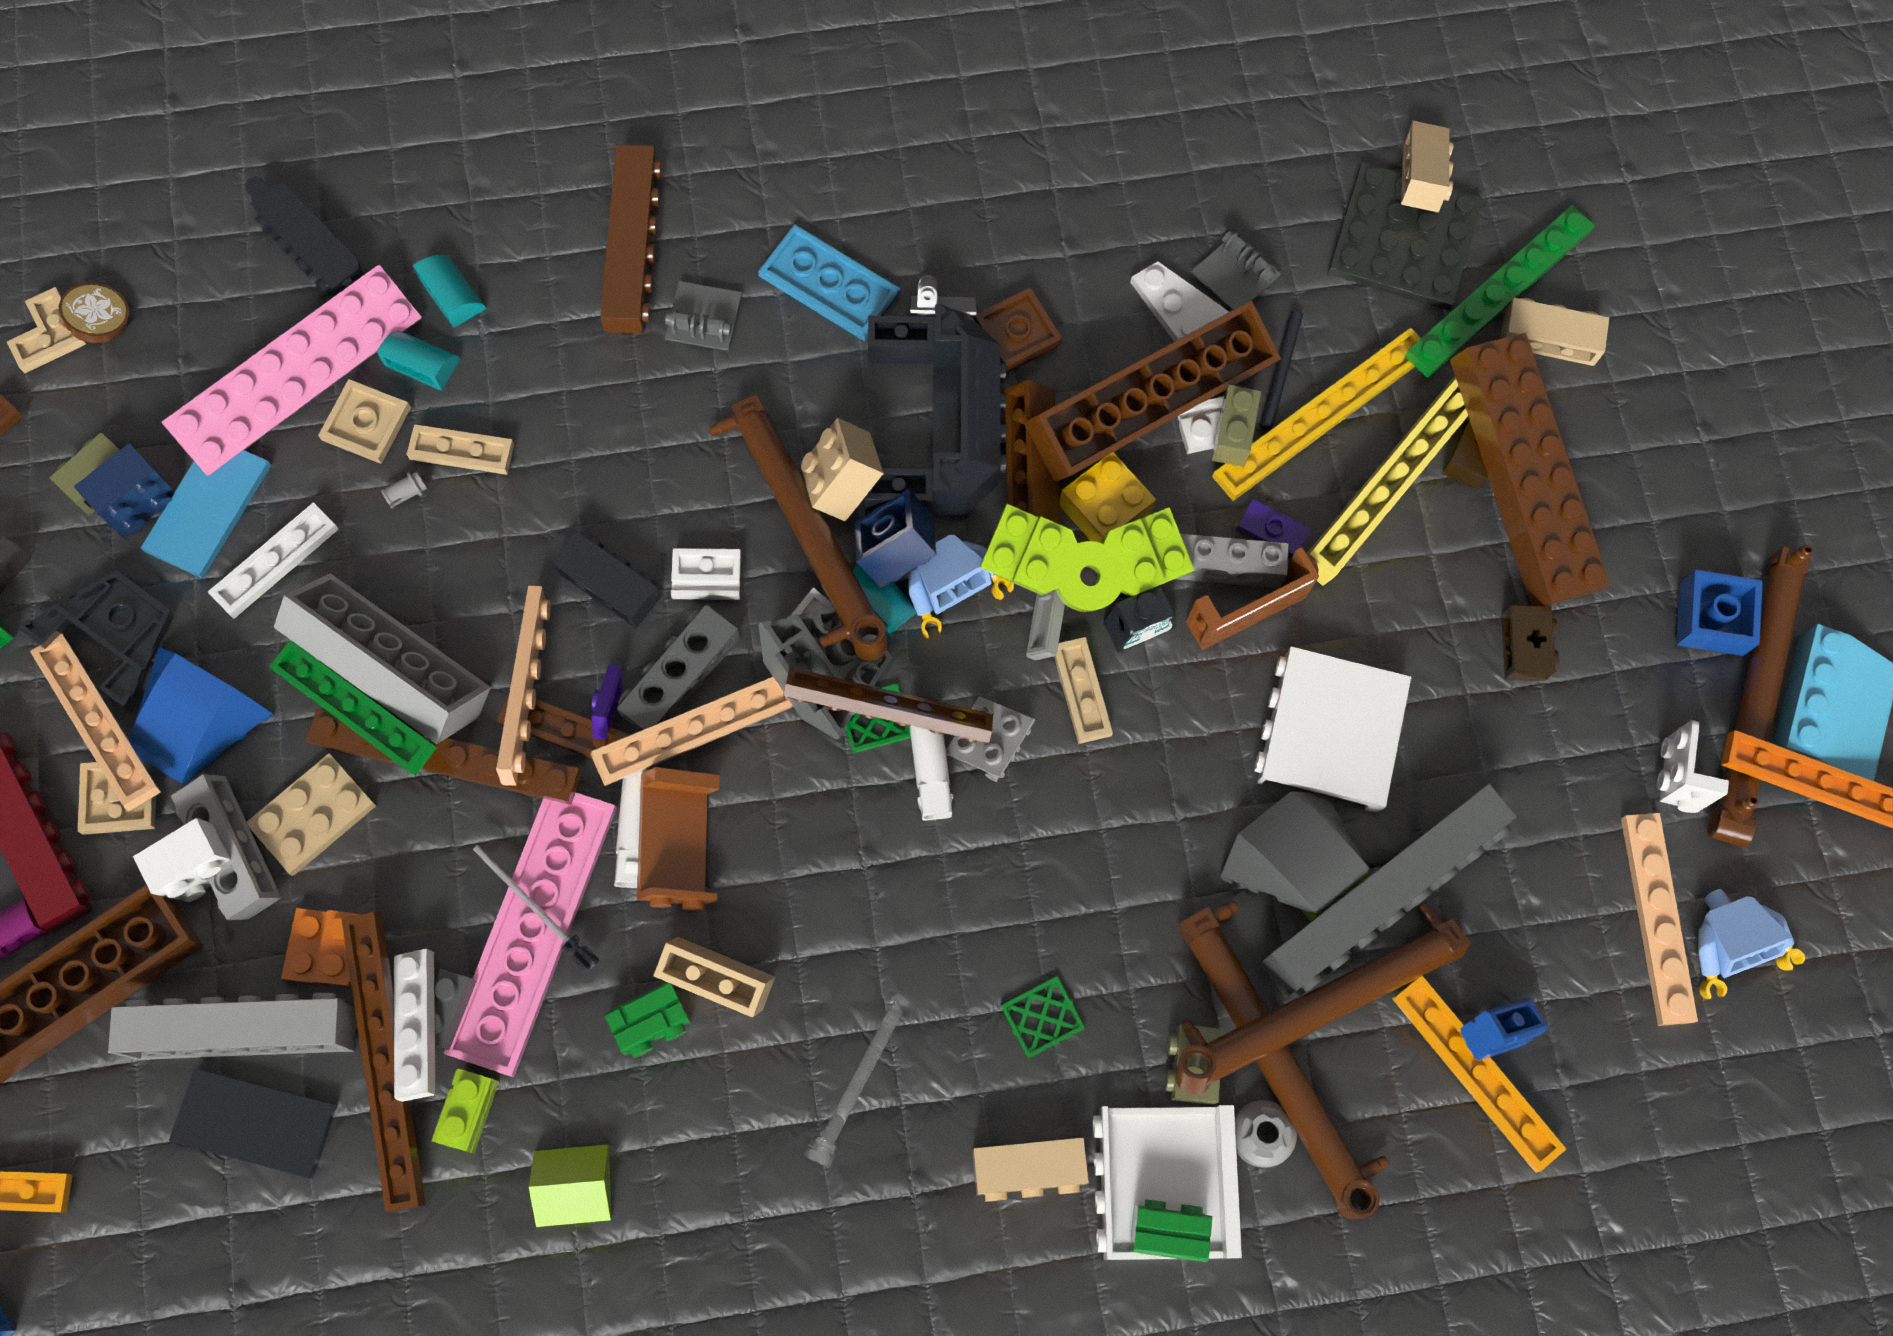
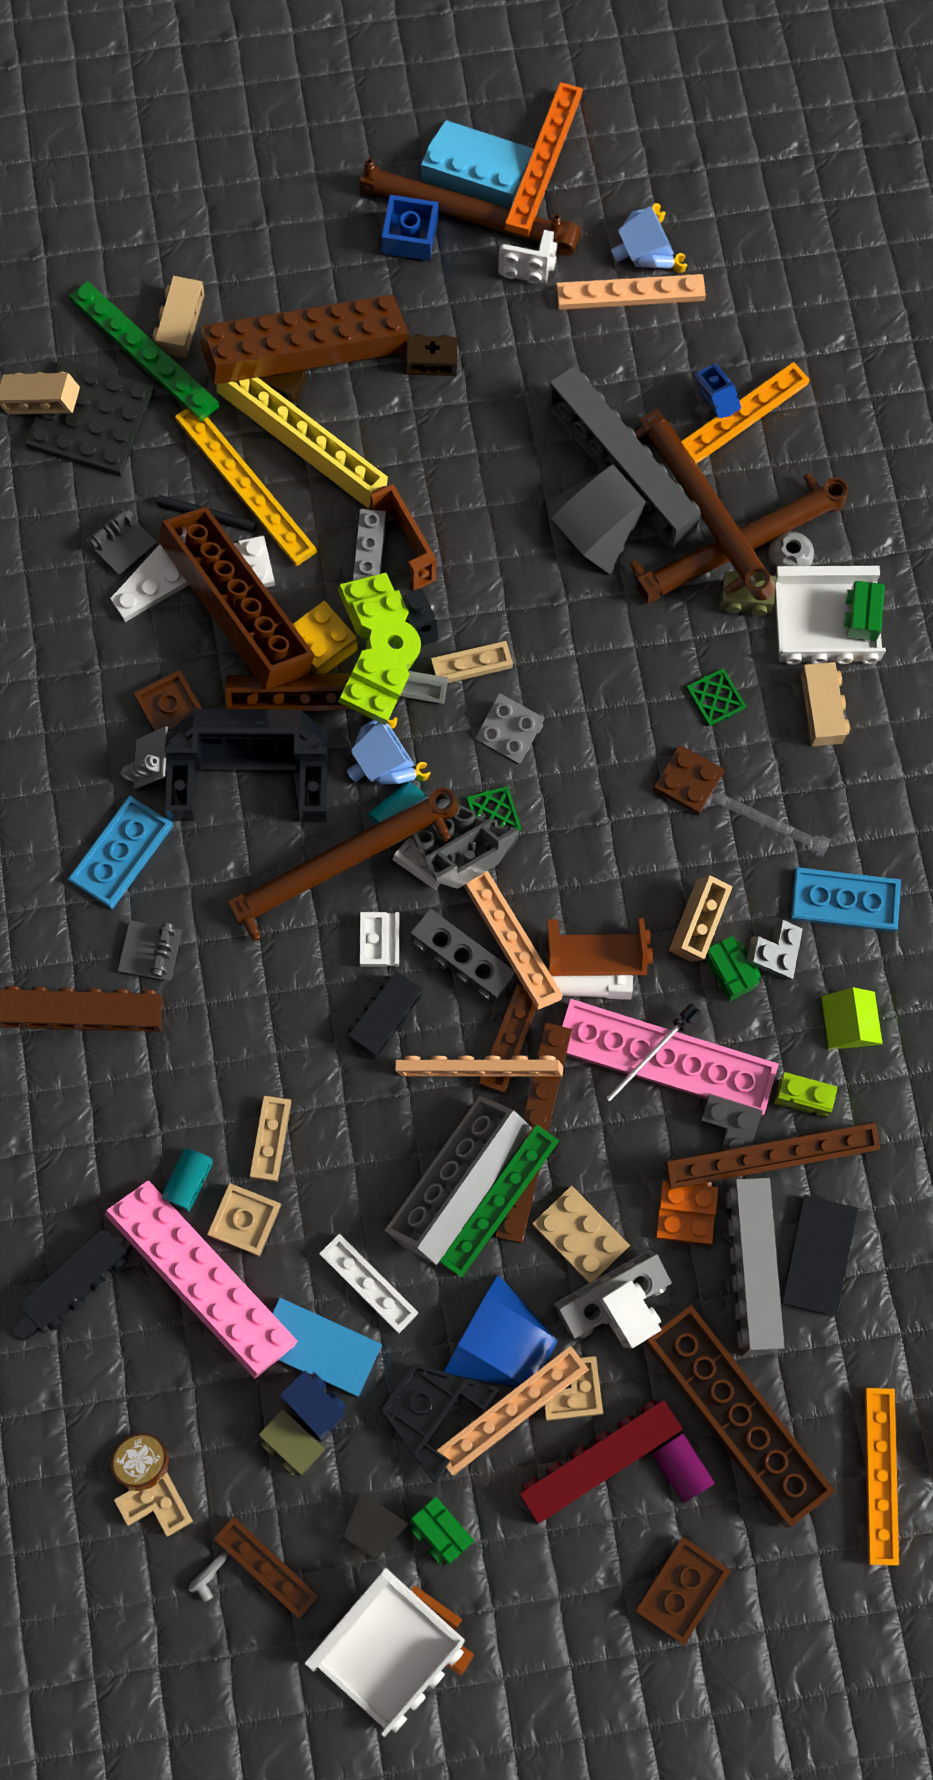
camera: 90 degrees left, 0 degrees up
(404, 489) = (305, 1182): light grey pin -> none
(414, 1025) = (747, 1131): white plate -> none
(449, 288) = (122, 1159): teal brick -> none
(606, 702) = (490, 1006): dark purple plate -> none
(661, 1087) = (779, 955): none -> plate
(744, 1187) = (845, 899): none -> dark azure tile
(841, 469) = (301, 828): tan brick -> none
(888, 705) = (495, 792): reddish brown plate -> none
(895, 538) = (358, 788): dark blue brick -> none
(920, 974) = (689, 779): none -> reddish brown plate
(931, 774) = (530, 770): white piece -> none
(1236, 425) = (263, 540): olive brick -> none
(1270, 525) = (339, 525): dark purple plate -> none
(1333, 727) = (499, 490): white panel -> none

